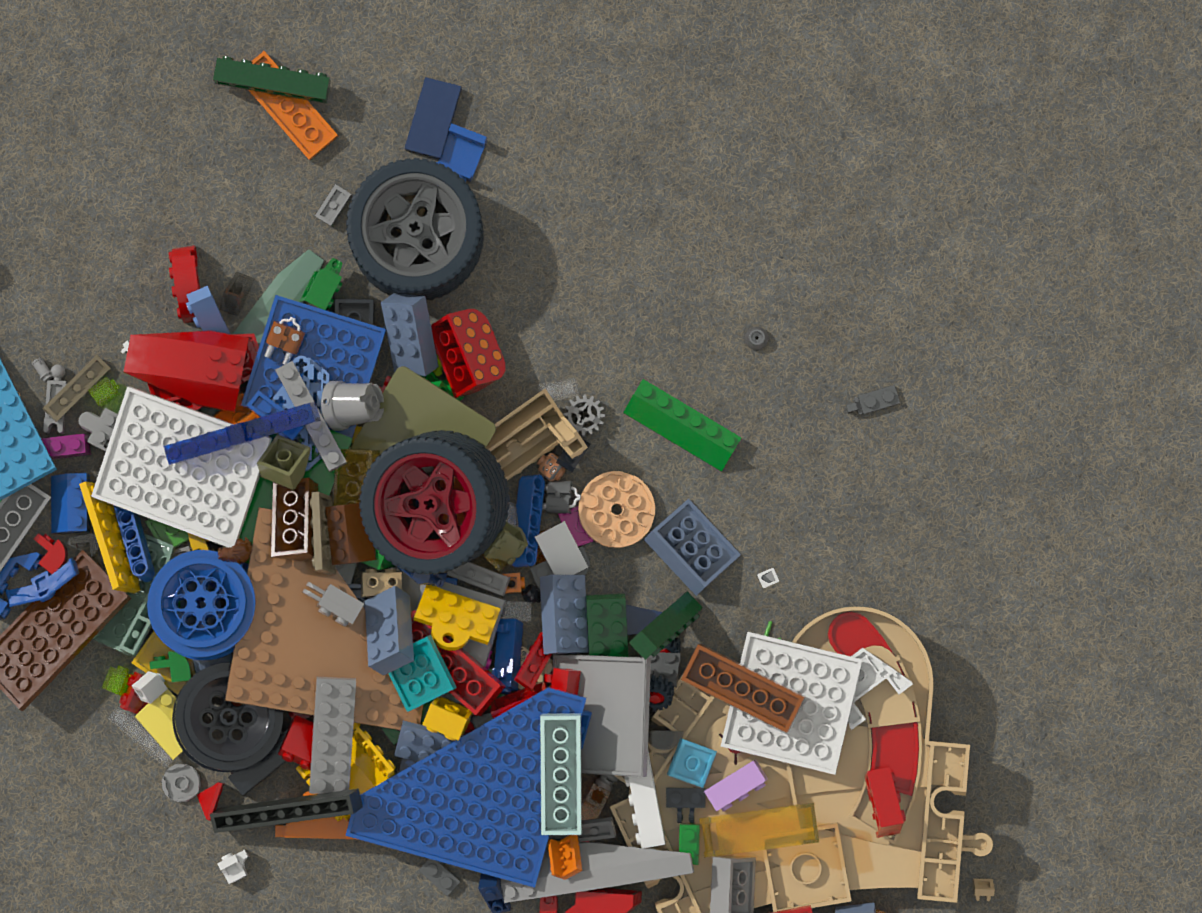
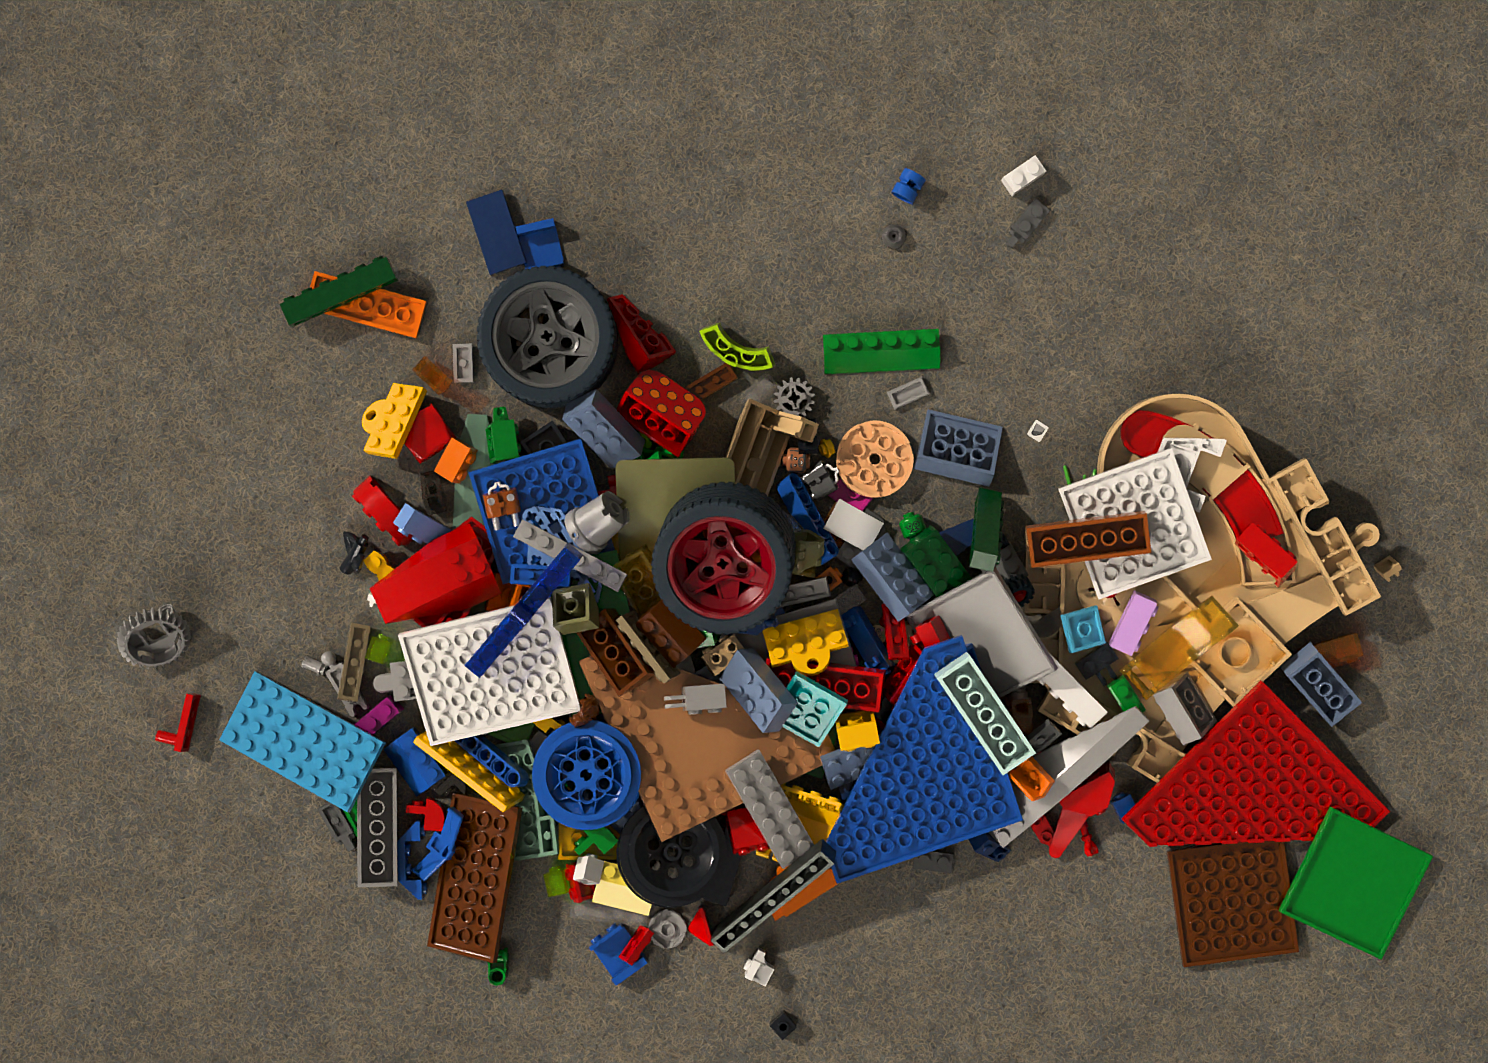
camera: 30 degrees left, 5 degrees up
(23, 717) = (501, 965): none -> green piece
(127, 774) = (610, 947): none -> blue panel
(140, 780) = (636, 945): none -> red plate
(141, 297) = (355, 548): none -> black plant
(151, 321) = (378, 564): none -> yellow brick
(243, 212) = (392, 420): none -> yellow plate
(263, 241) = (428, 434): none -> red piece
(272, 280) = (456, 460): none -> orange brick
(301, 198) = (432, 375): none -> clear orange brick
(490, 284) = (641, 342): none -> red wedge
(526, 356) = (712, 381): none -> reddish brown plate
(559, 345) = (734, 353): none -> lime brick
(583, 474) = (826, 448): none -> yellow plate
(610, 584) = (912, 525): none -> green head
(681, 474) = (908, 393): none -> light grey tile
(789, 307) = (905, 192): none -> blue wheel
(896, 359) = (1023, 175): none -> white brick

